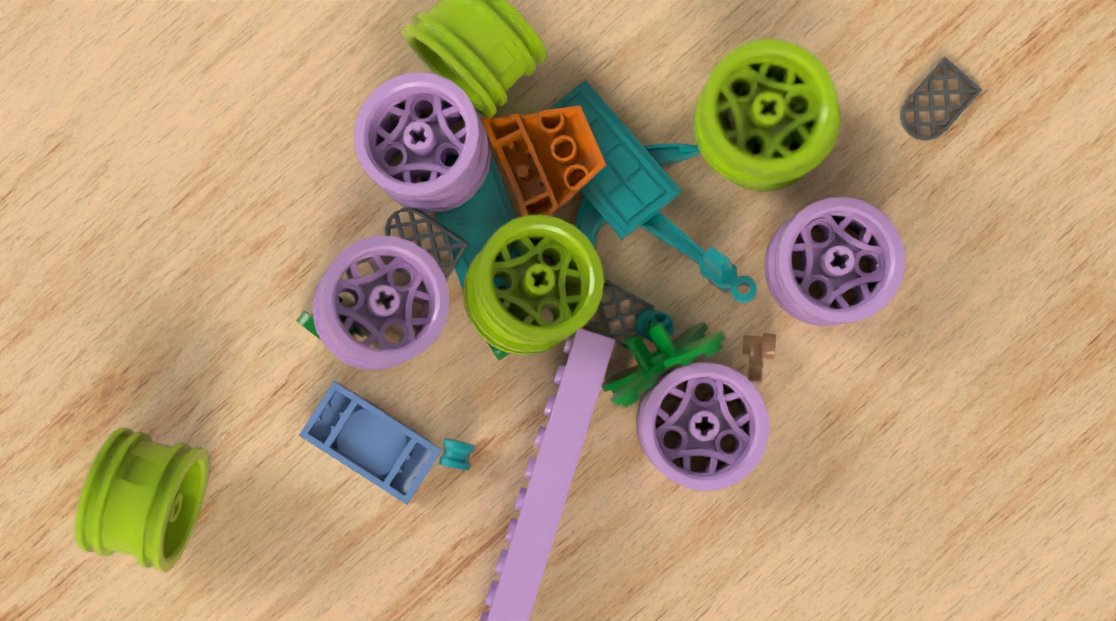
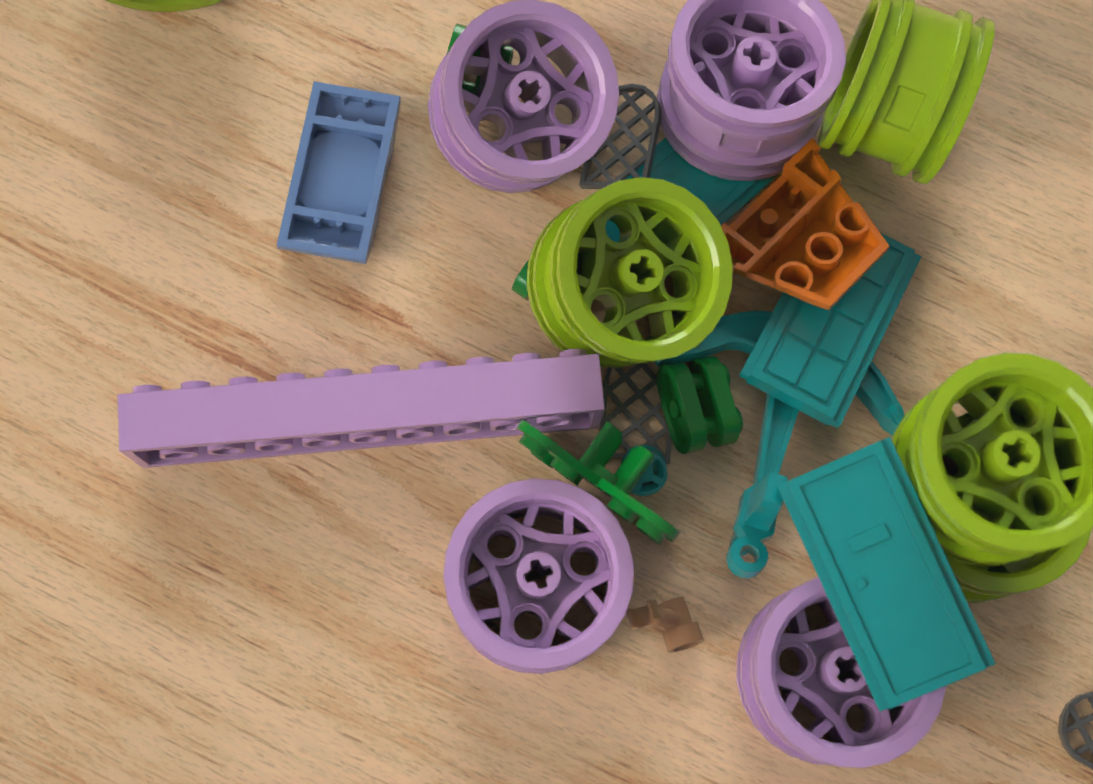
camera: 65 degrees right, 10 degrees down
(456, 454) = (367, 283): teal wheel -> none
(629, 271) = (698, 404): none -> green brick
(797, 215) = (886, 575): none -> teal piece

